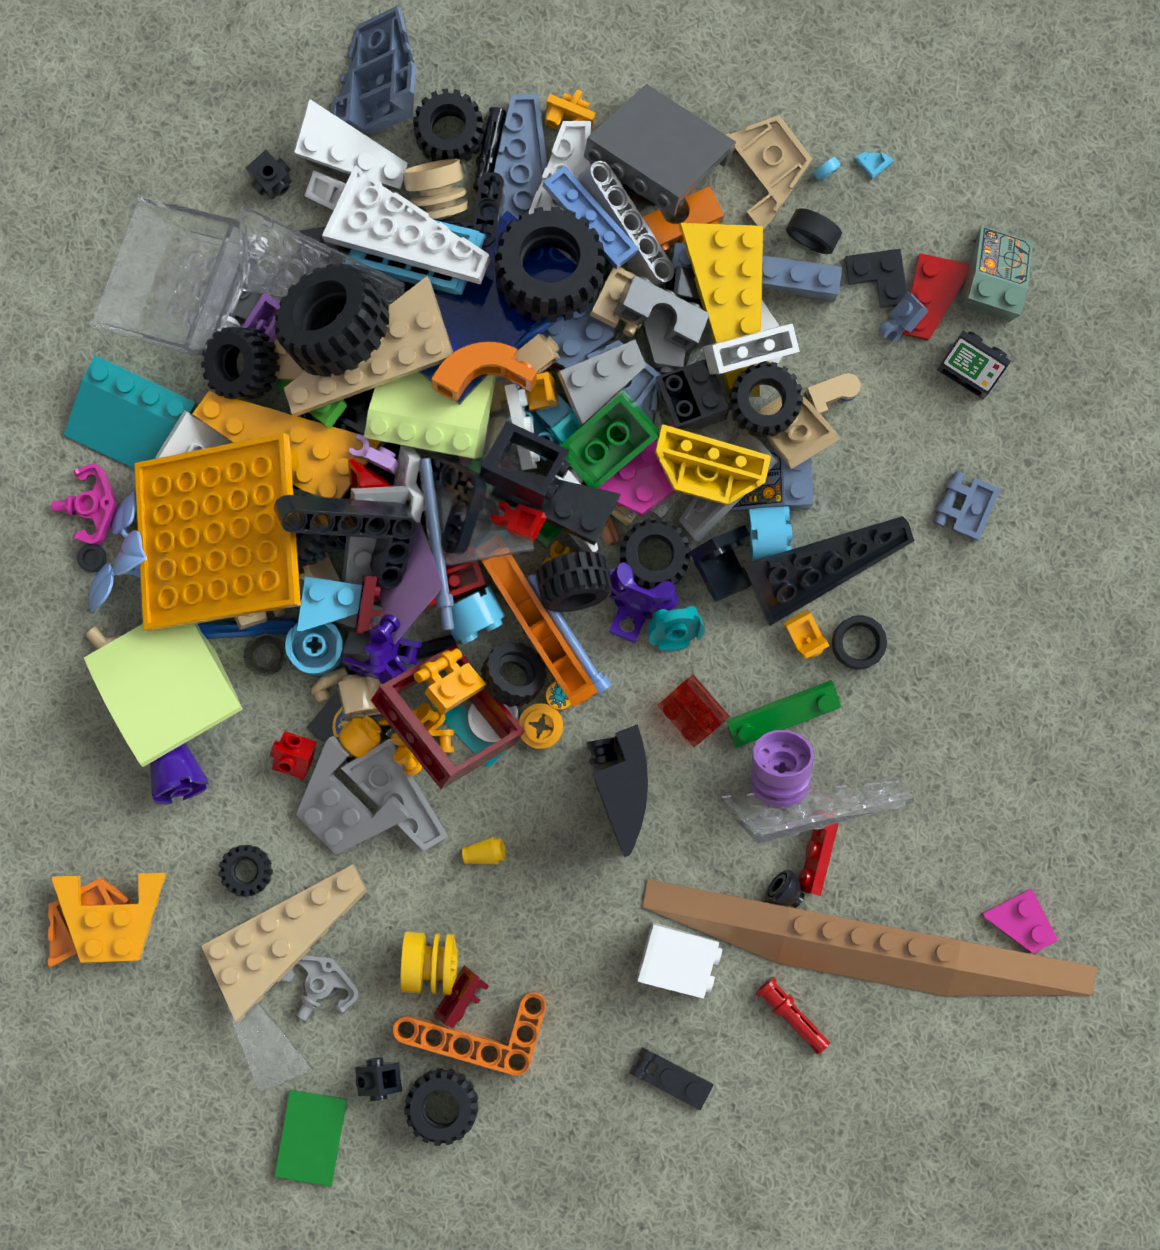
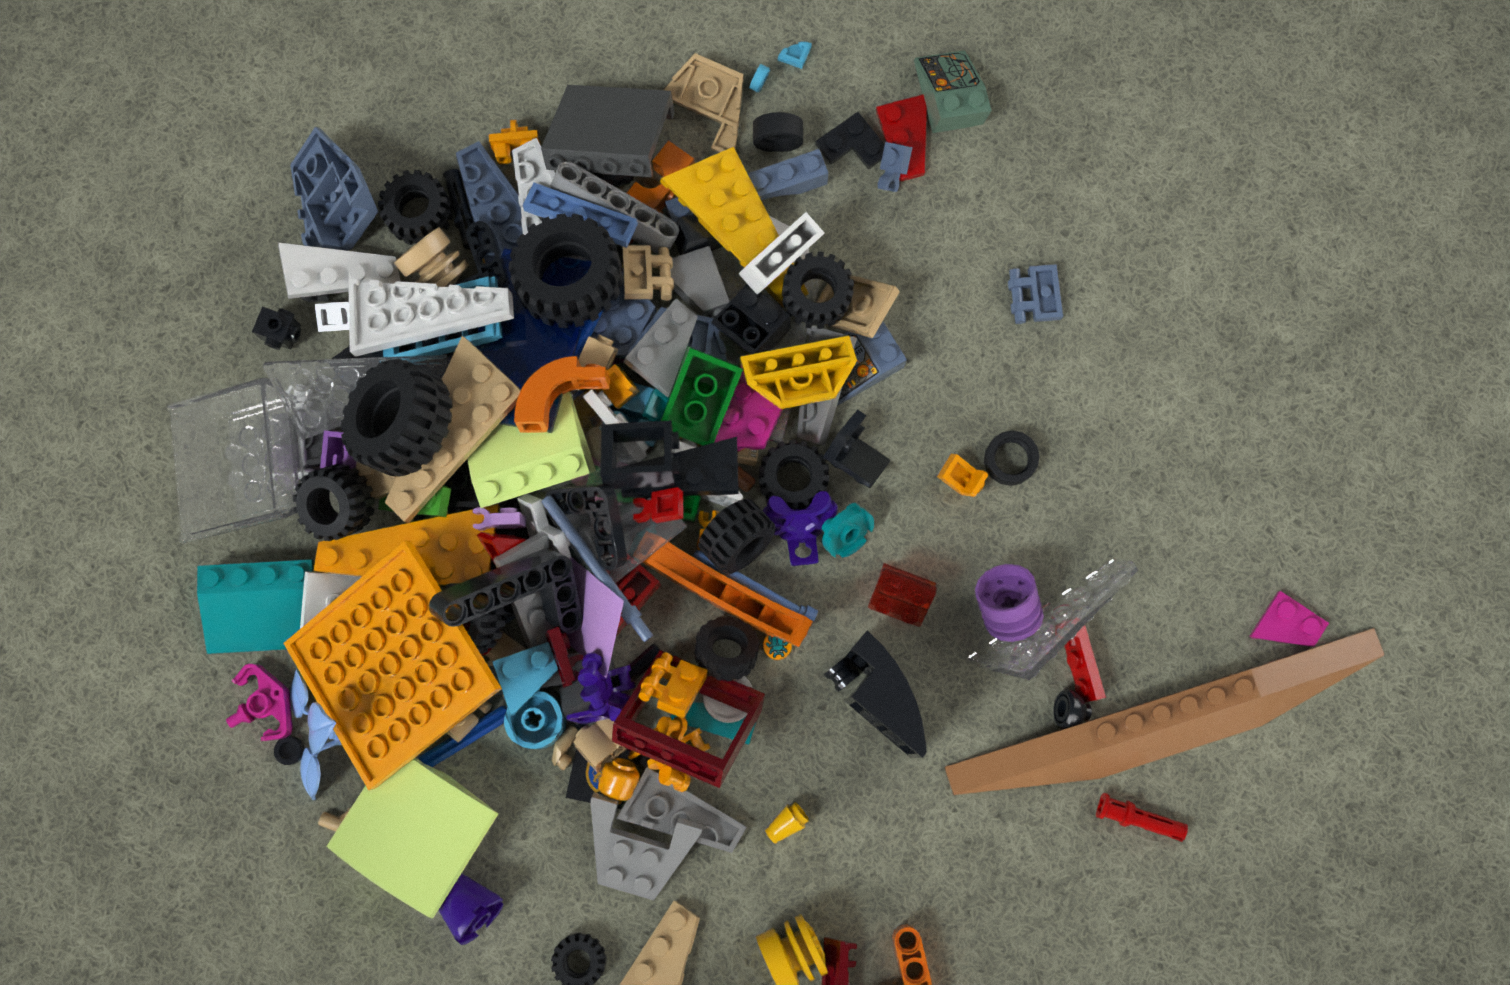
camera: 30 degrees left, 5 degrees down
(256, 653) = (485, 757): clear smoke hair -> none
(293, 755) = (566, 830): red brick -> none
(475, 614) = (664, 612): medium azure brick -> none
(551, 718) = (781, 670): light orange gear -> none
(672, 1079) = (1067, 936): black plate -> none
(679, 961) = (1013, 826): white slope -> none
(683, 318) = (708, 260): arch -> none
(769, 531) = (884, 406): medium azure brick -> none
(783, 713) = (981, 555): green plate -> none
(807, 572) = (932, 423): black wing -> none
(839, 388) = (870, 254): tan leg -> none
(974, 364) = (975, 171): slope -> none

